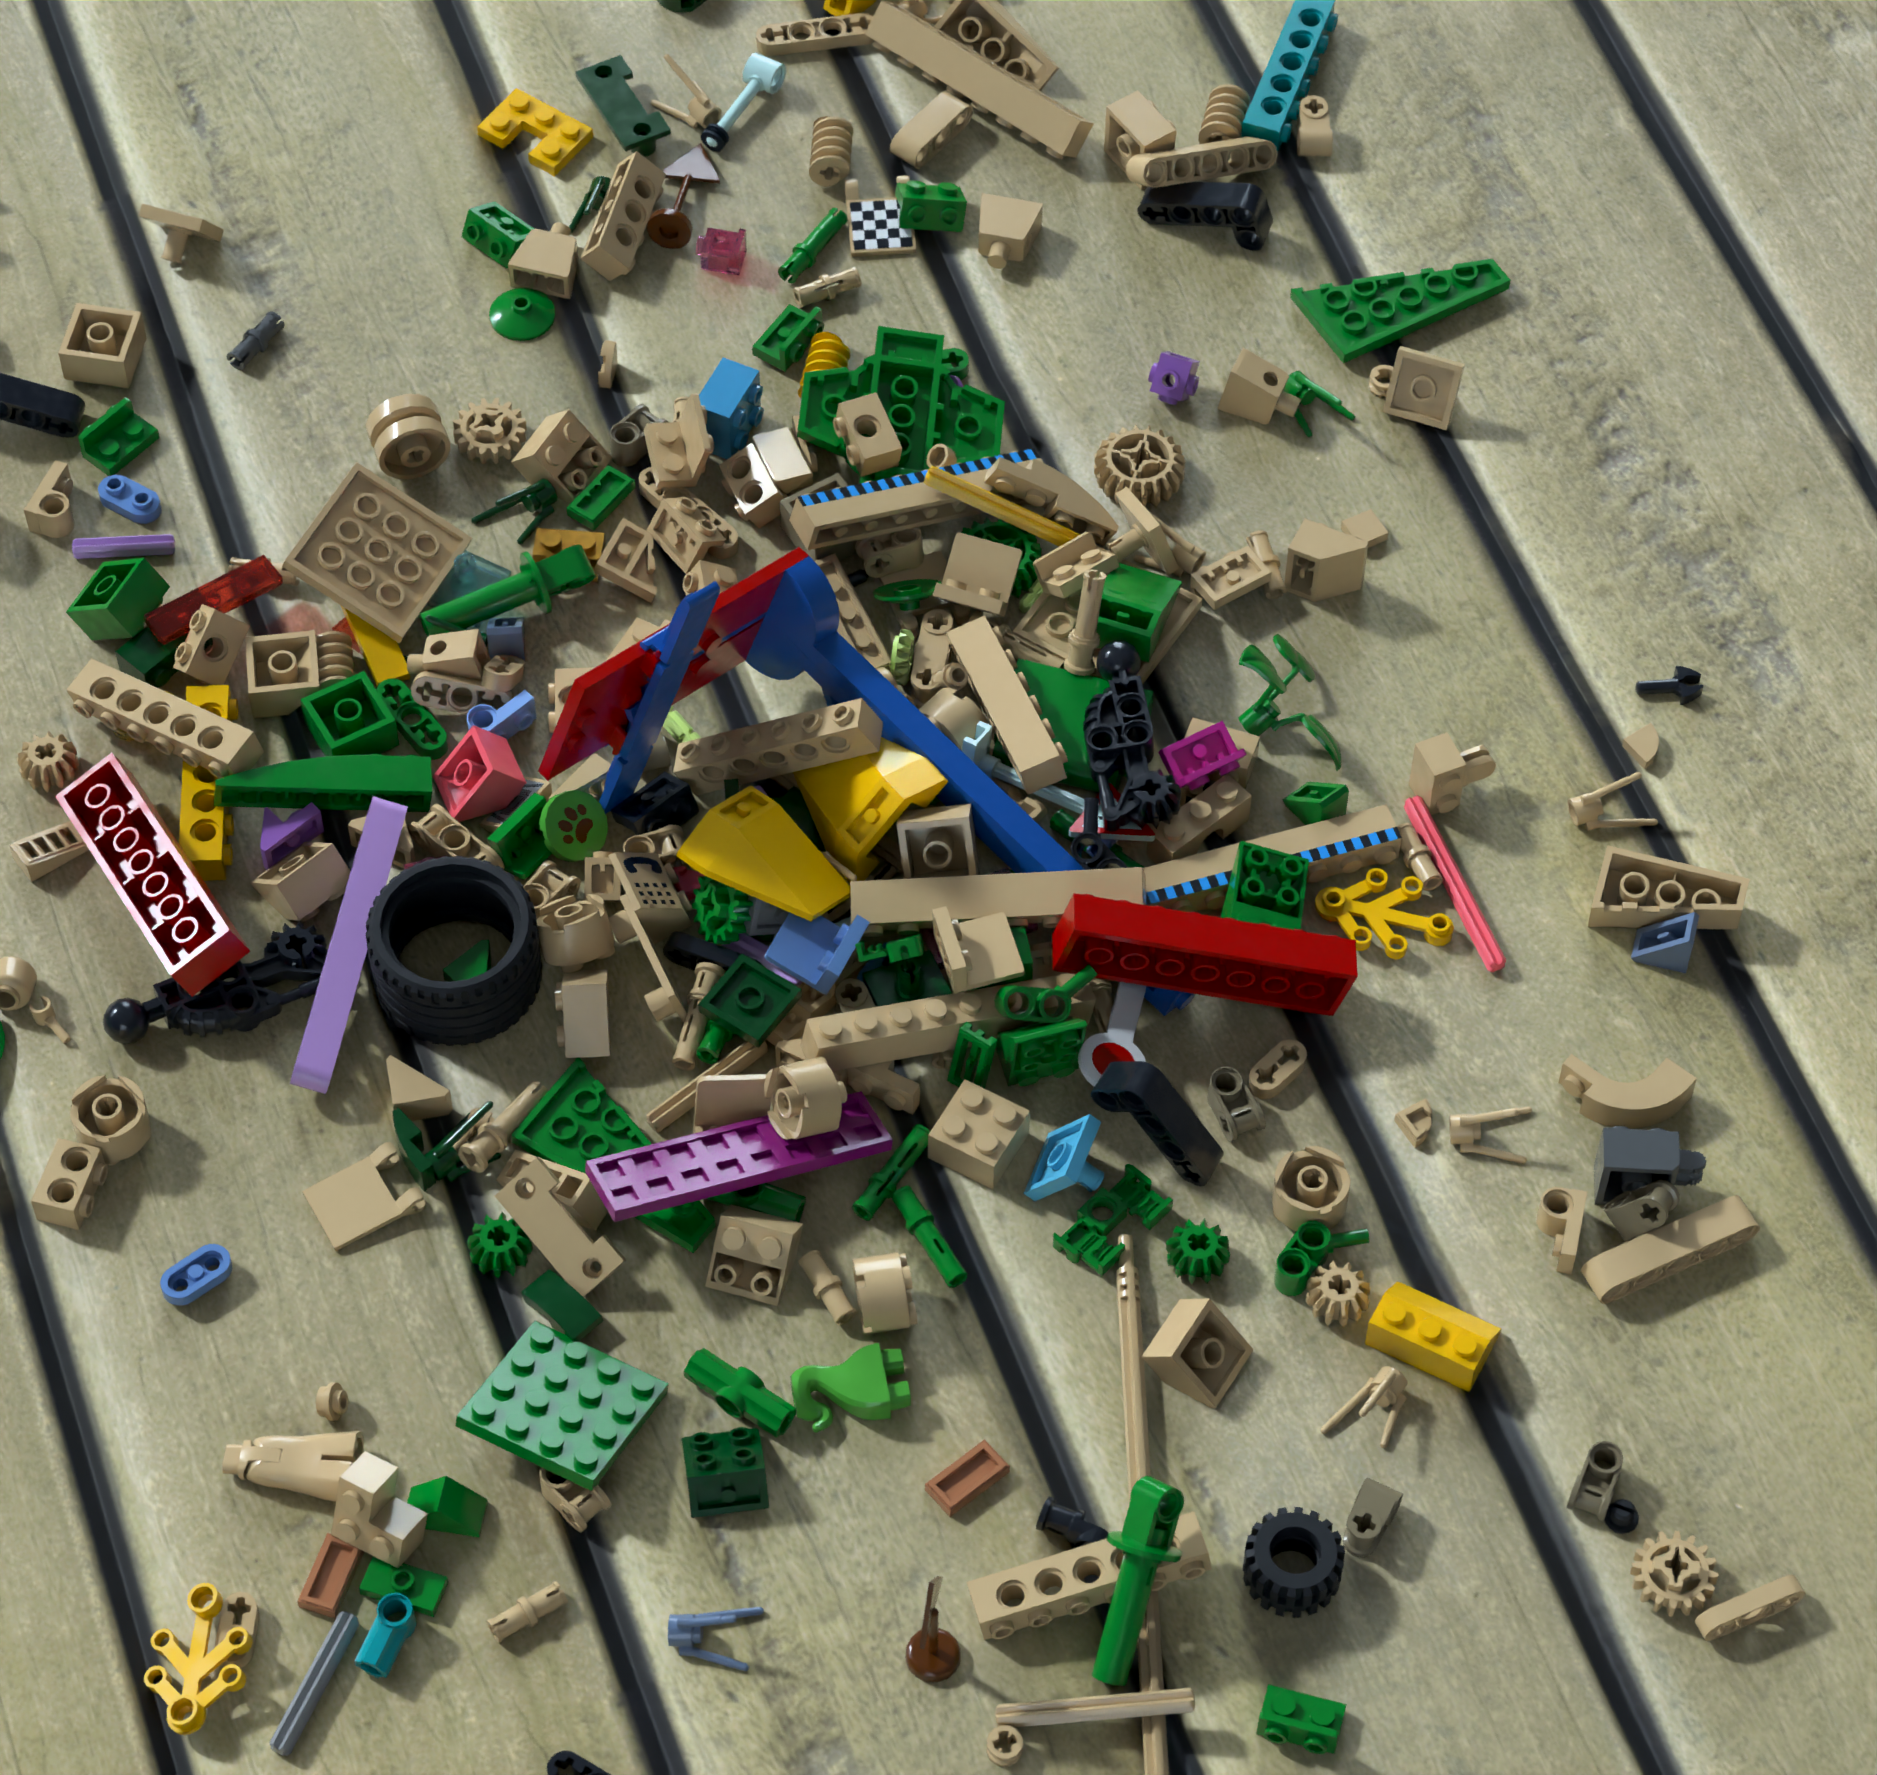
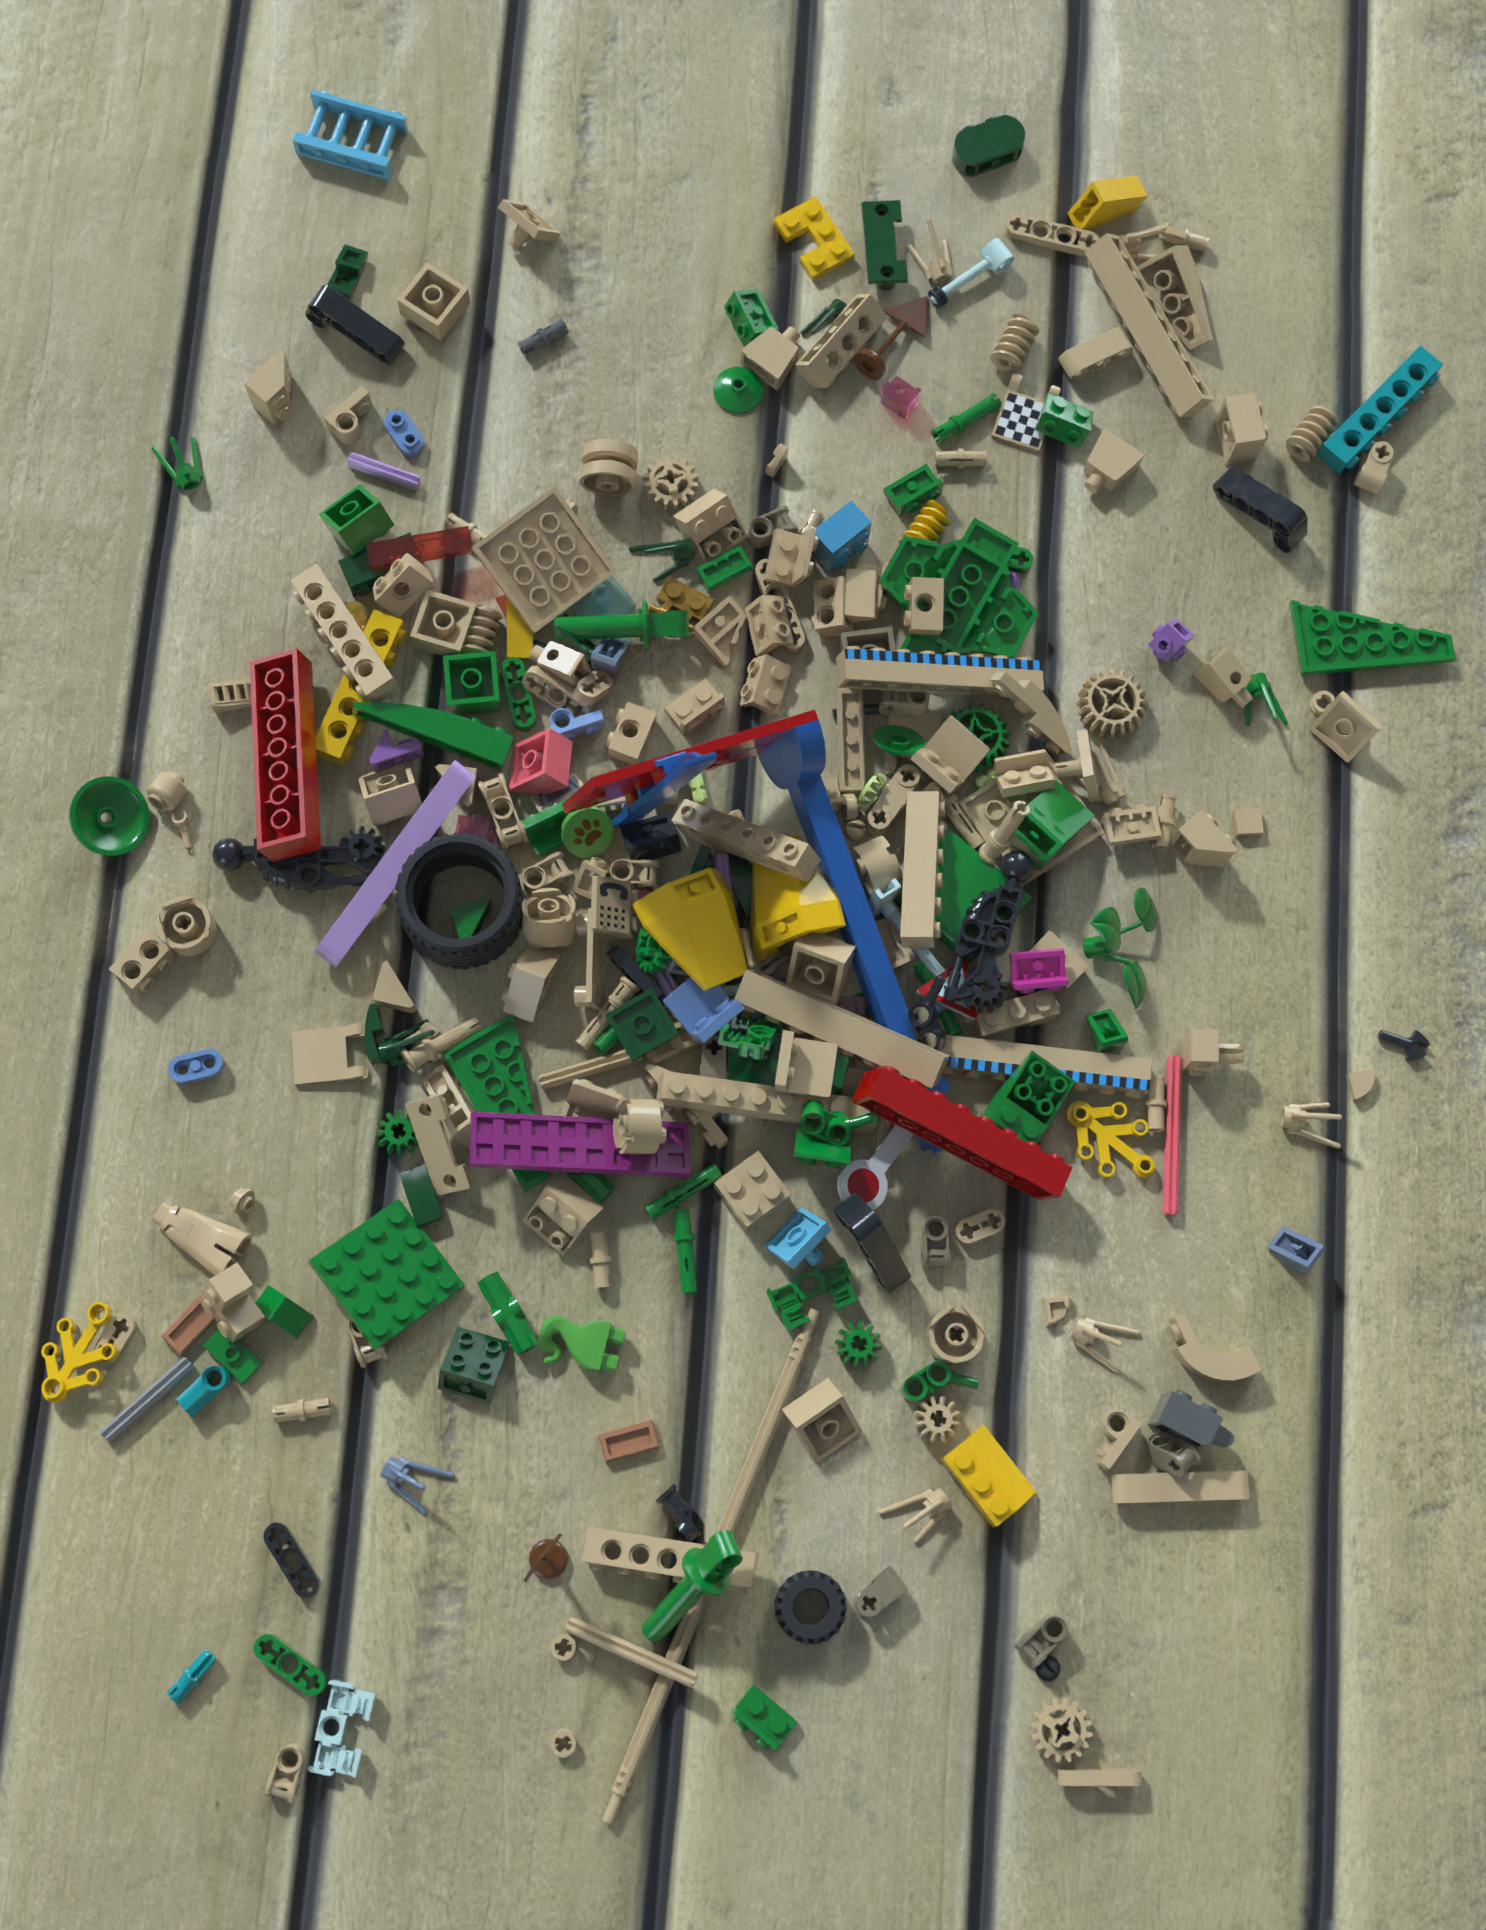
camera: 20 degrees right, 20 degrees up
(48, 761) = (254, 633): tan gear -> none
(116, 438) = (415, 380): green bracket -> none
(884, 1292) = (631, 1287): tan brick -> none
(941, 456) = (971, 641): tan hinge -> none
(945, 678) = (892, 831): tan pin -> none
(978, 1042) = (776, 1132): green tile -> none
(998, 507) = (991, 706): yellow axle -> none
(1189, 158) = (1275, 467): tan beam -> none
(1648, 889) = (1309, 1210): tan wedge -> none

